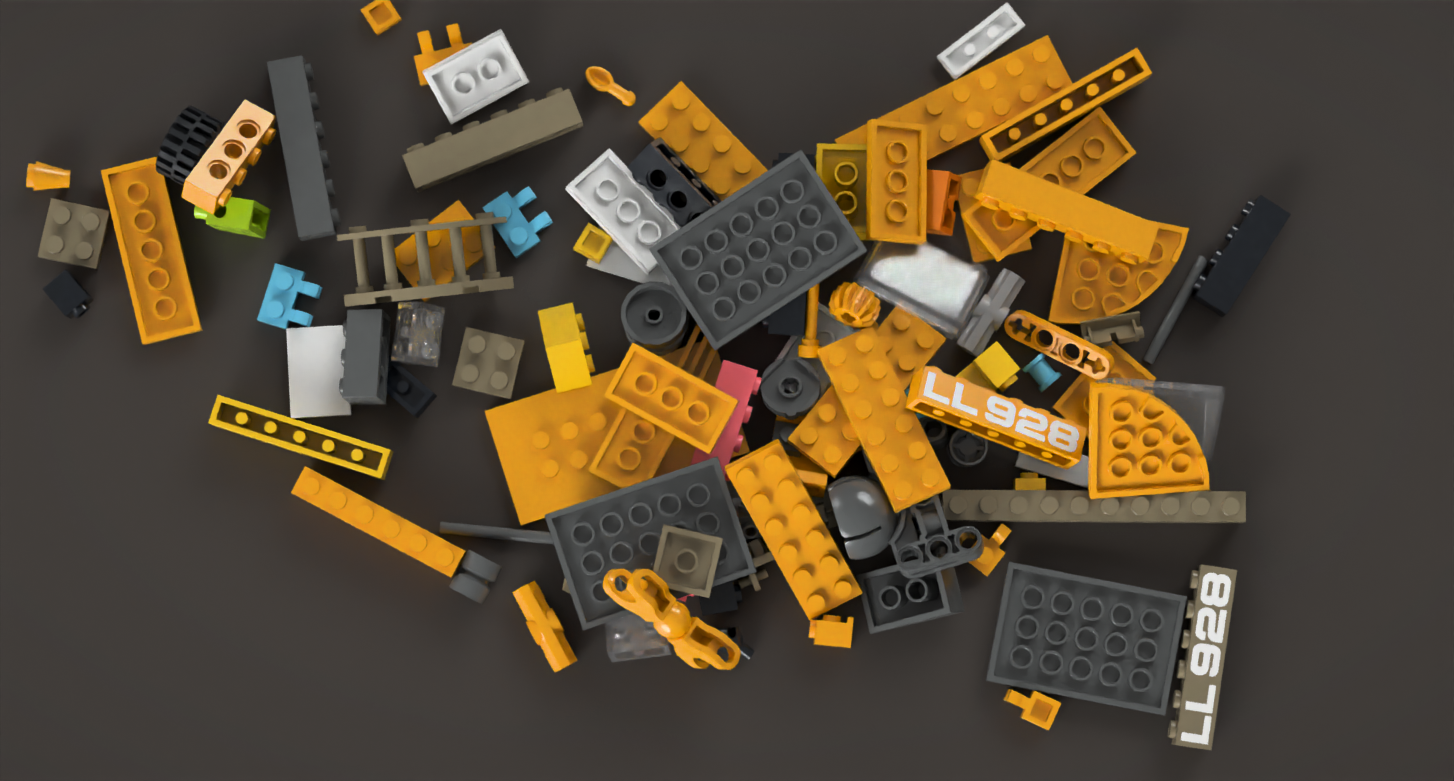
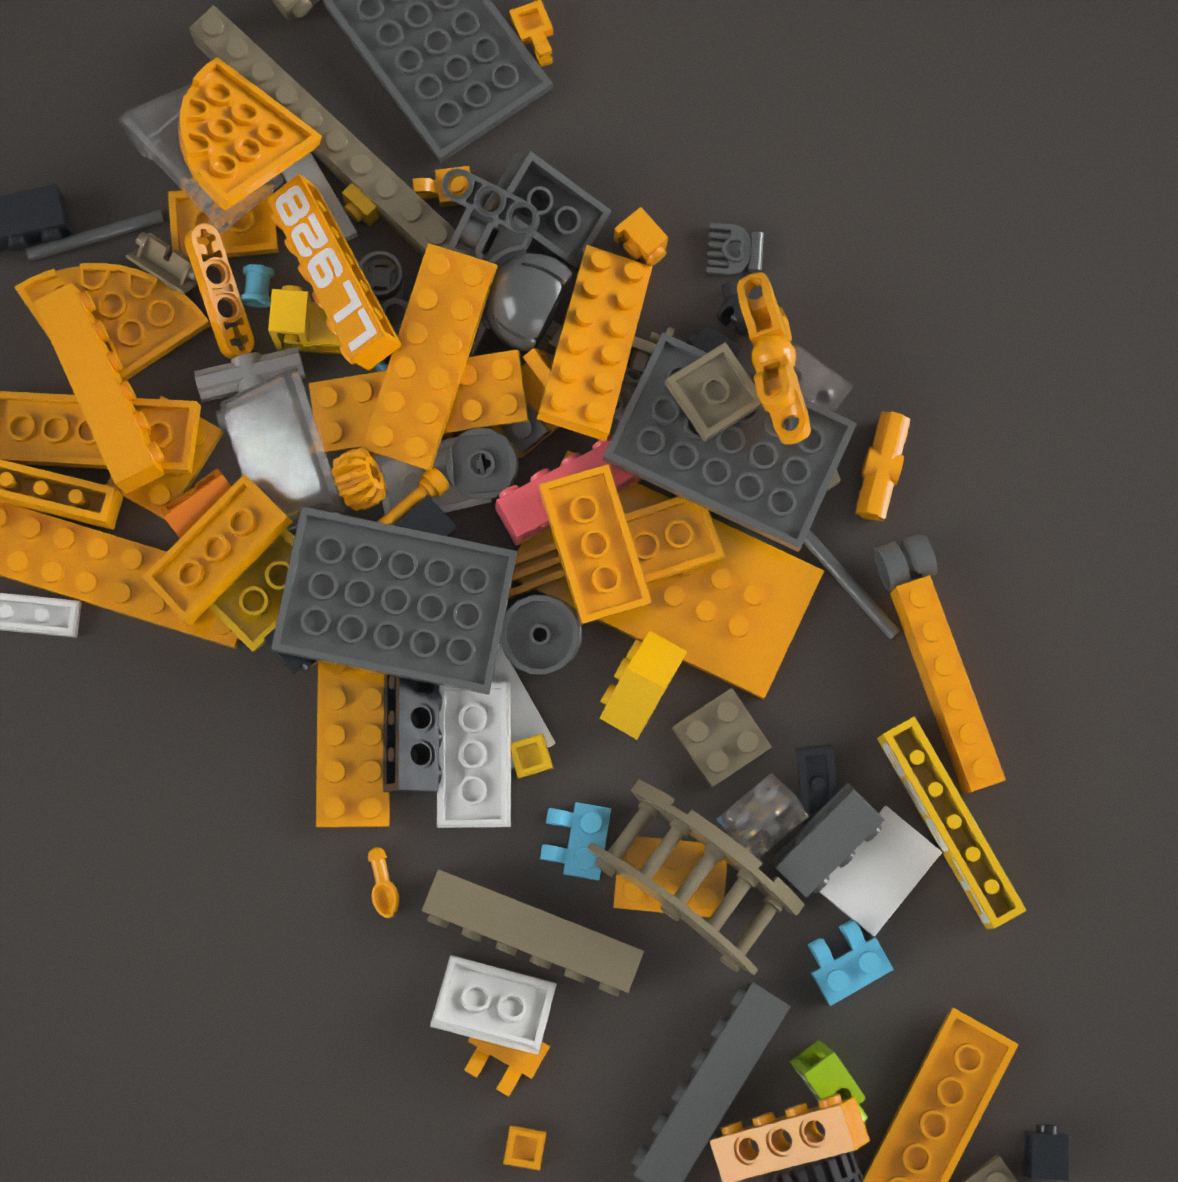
camera: 140 degrees left, 5 degrees down
(765, 683) = (738, 250): none -> dark grey piece

